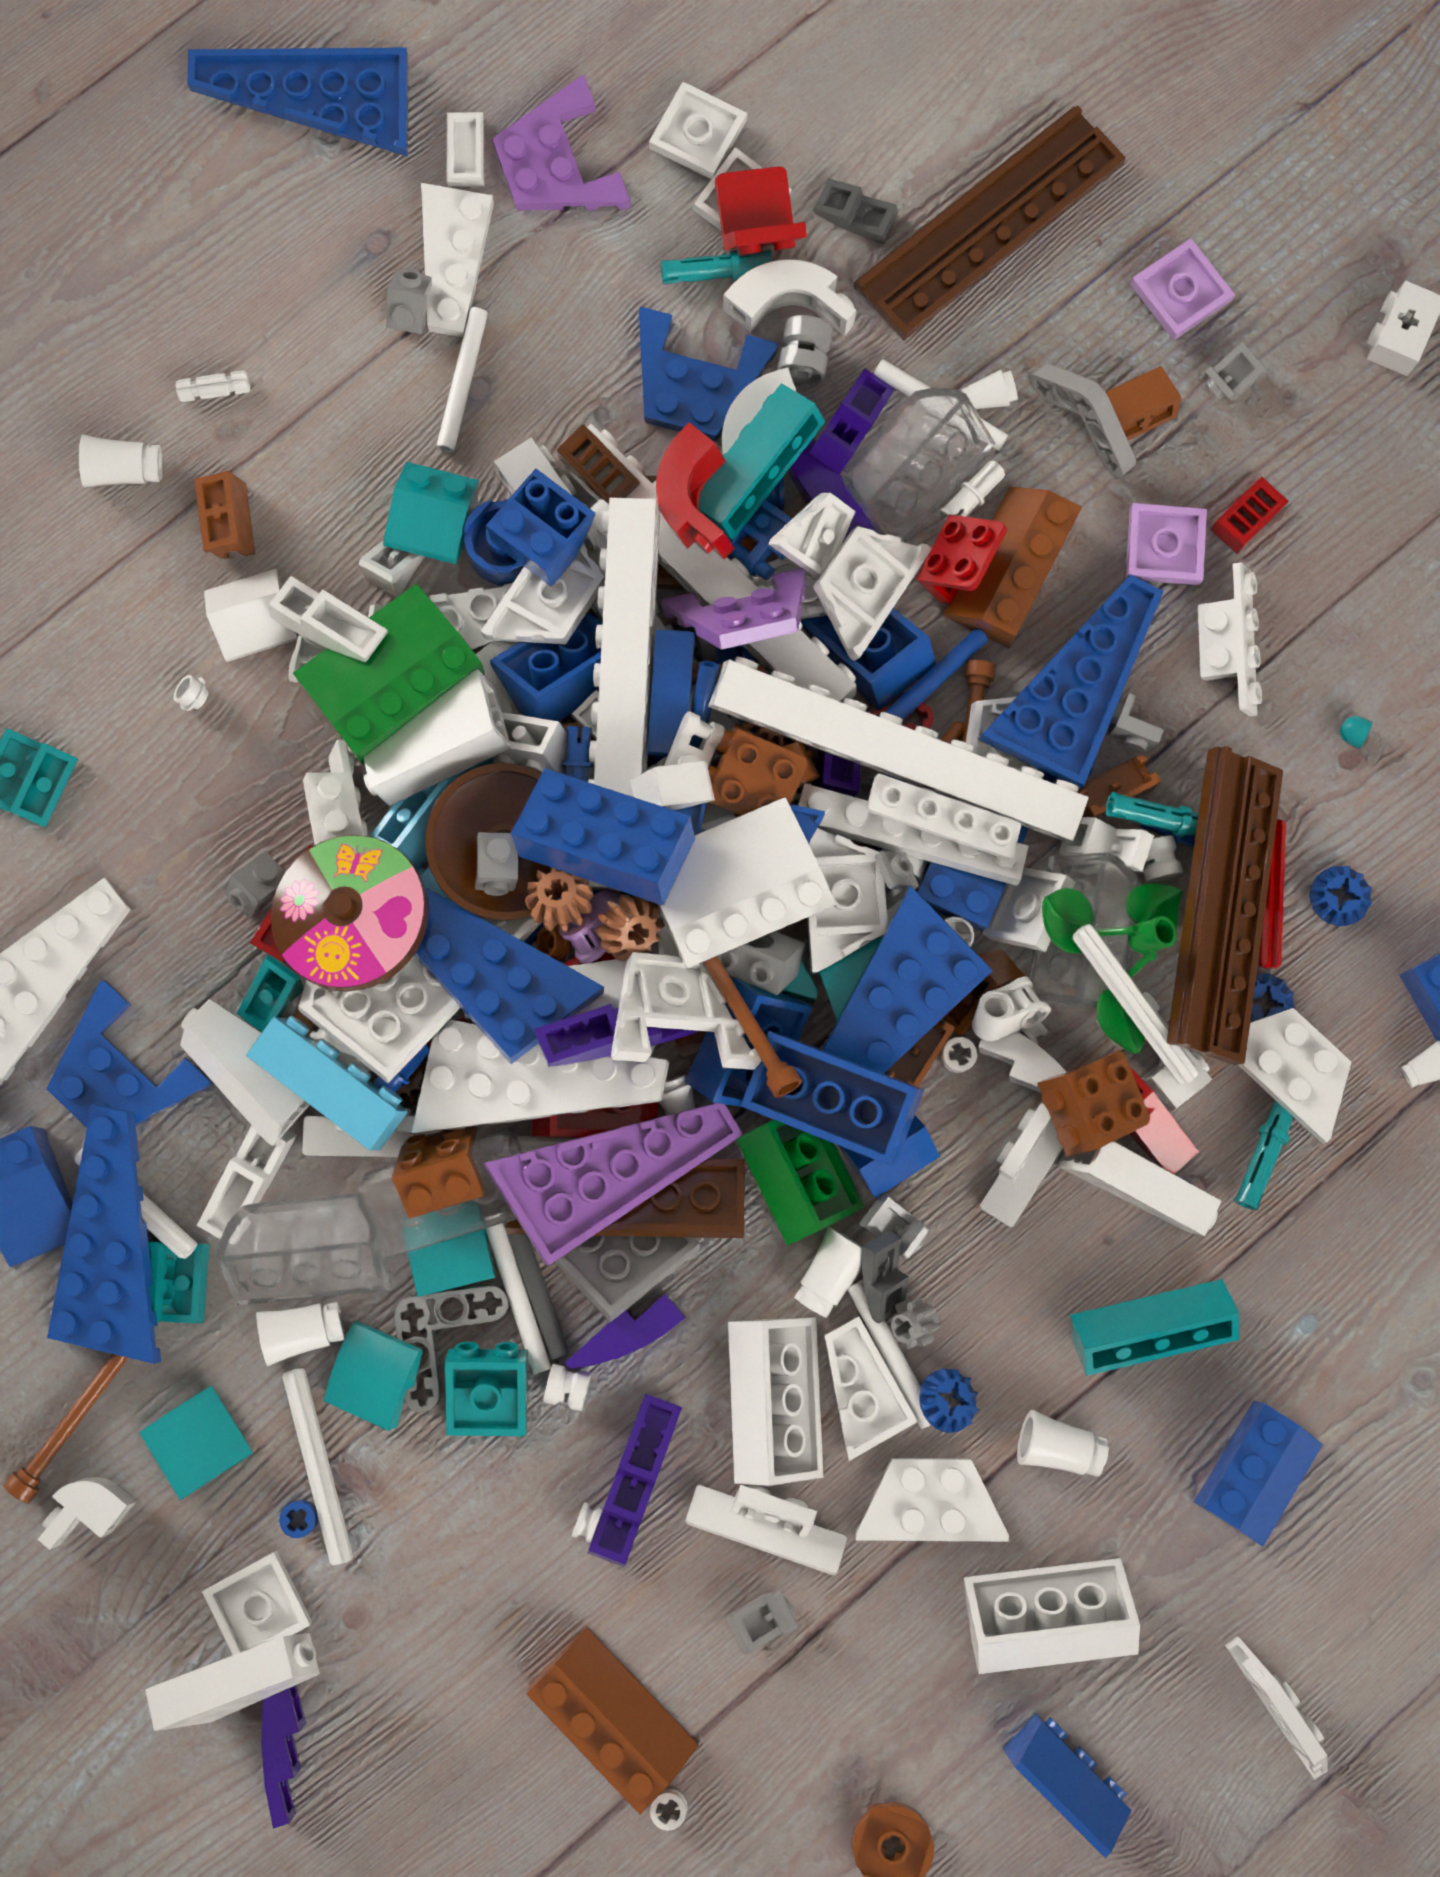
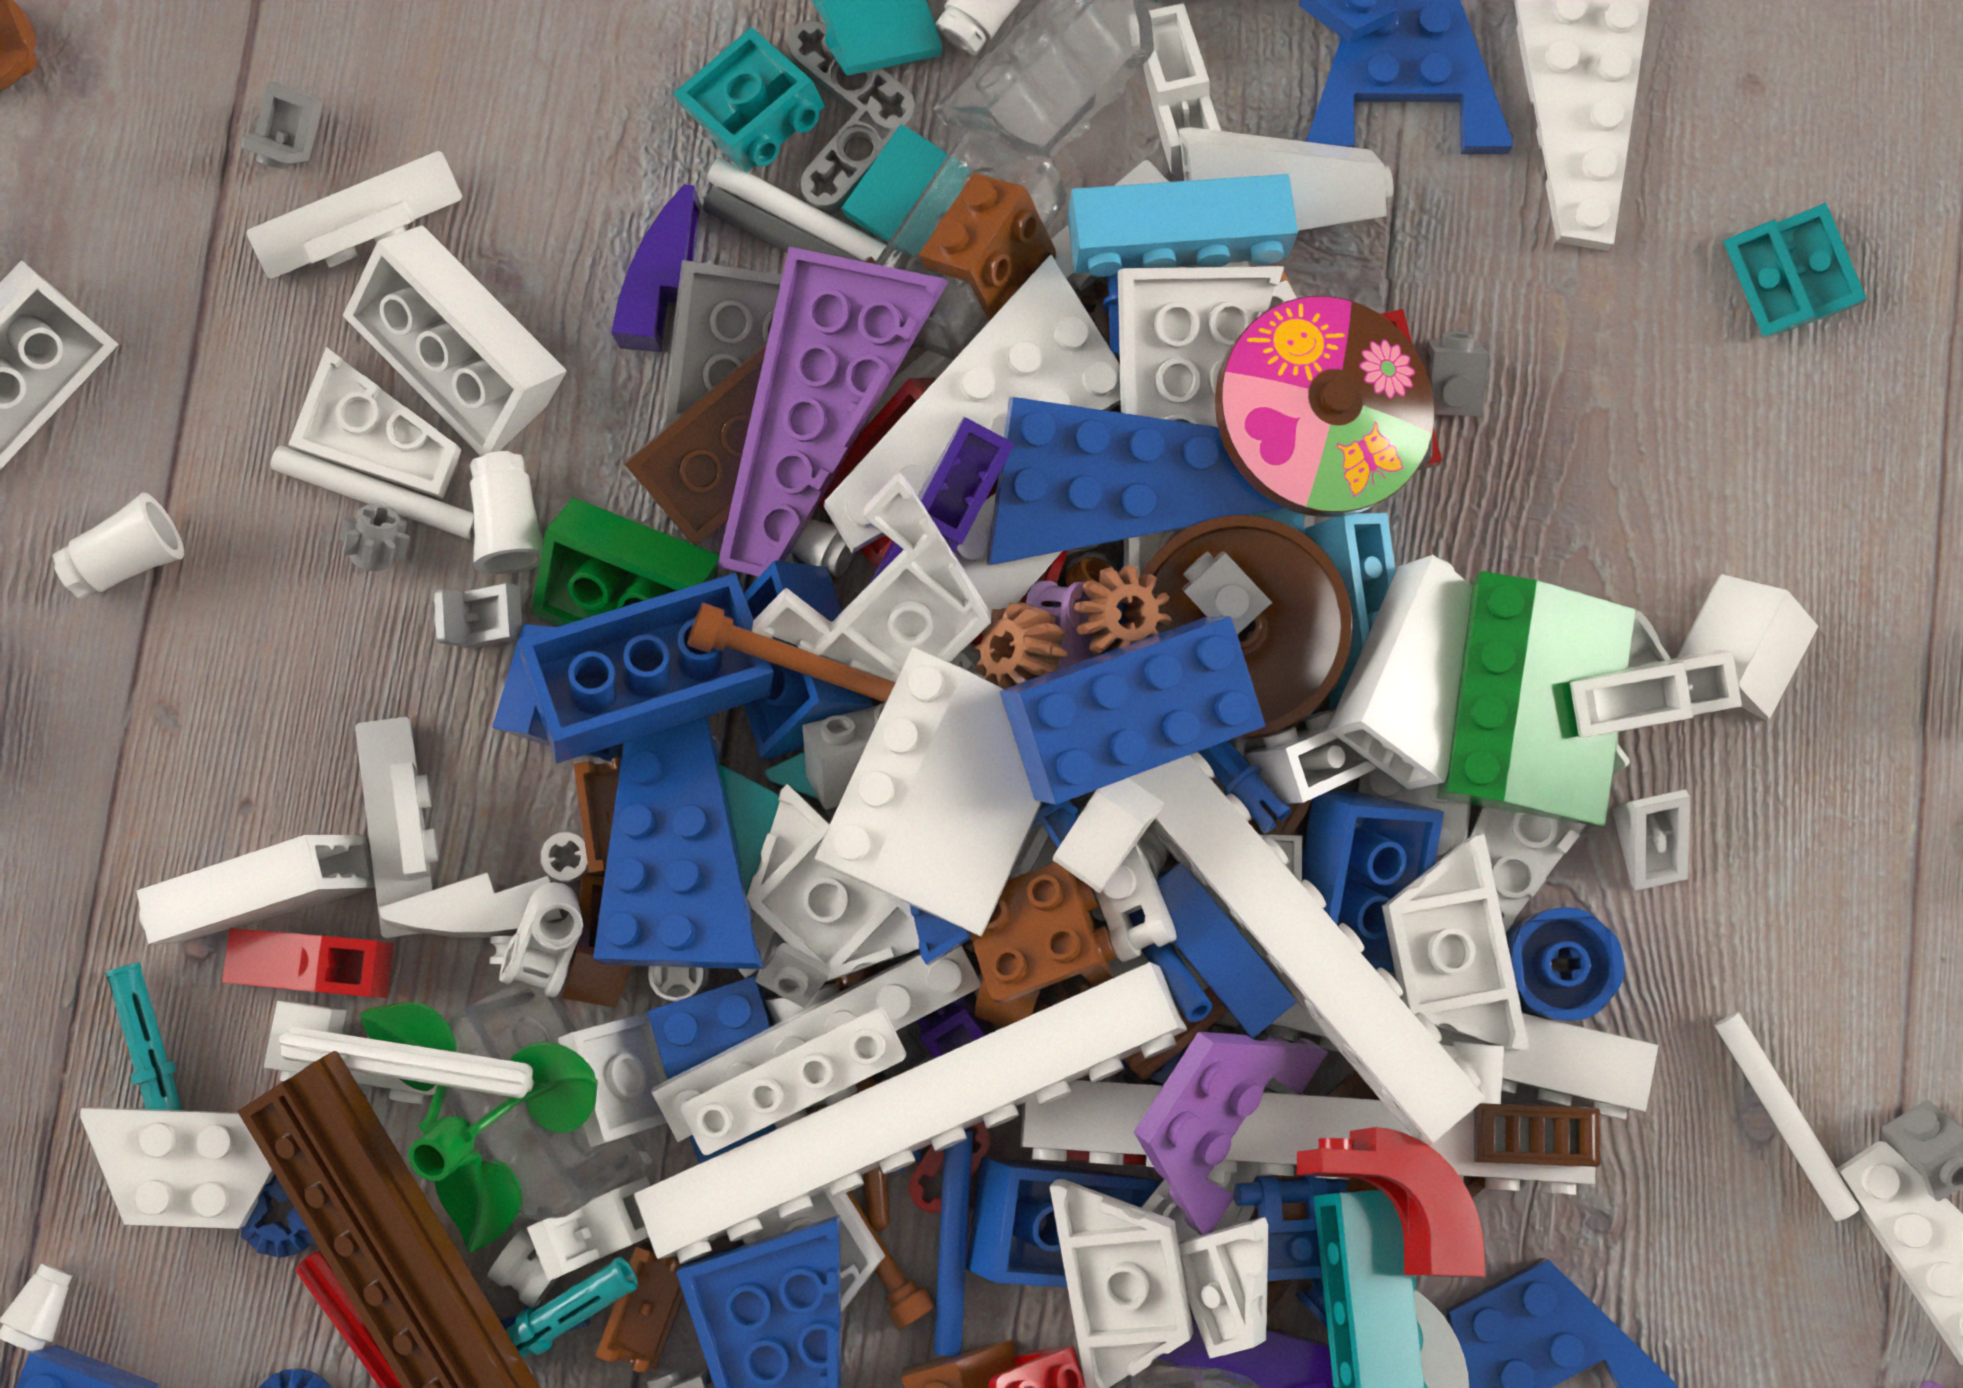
camera: 145 degrees right, 0 degrees up
(191, 693) = (1719, 504): white plate -> none
(224, 515) = (1880, 722): dark orange hinge -> none
(269, 993) = (1330, 268): teal slope -> none
(333, 798) = (1454, 512): white bracket -> none
(430, 512) = (1669, 924): teal slope -> none
(541, 527) = (1530, 1005): blue slope -> none
(567, 1387) = (673, 170): white wheel -> none
(587, 1522) = (539, 68): white bush -> none
(634, 1480) = (528, 148): dark purple slope -> none
(881, 1279) = (445, 551): dark grey slope -> none
(931, 1503) = (210, 384): white wing -> none
(937, 1409) = (296, 505): blue gear -> none
(1094, 1104) = (361, 915): dark orange bracket -> none
(1153, 1325) = (115, 752): teal brick -> none

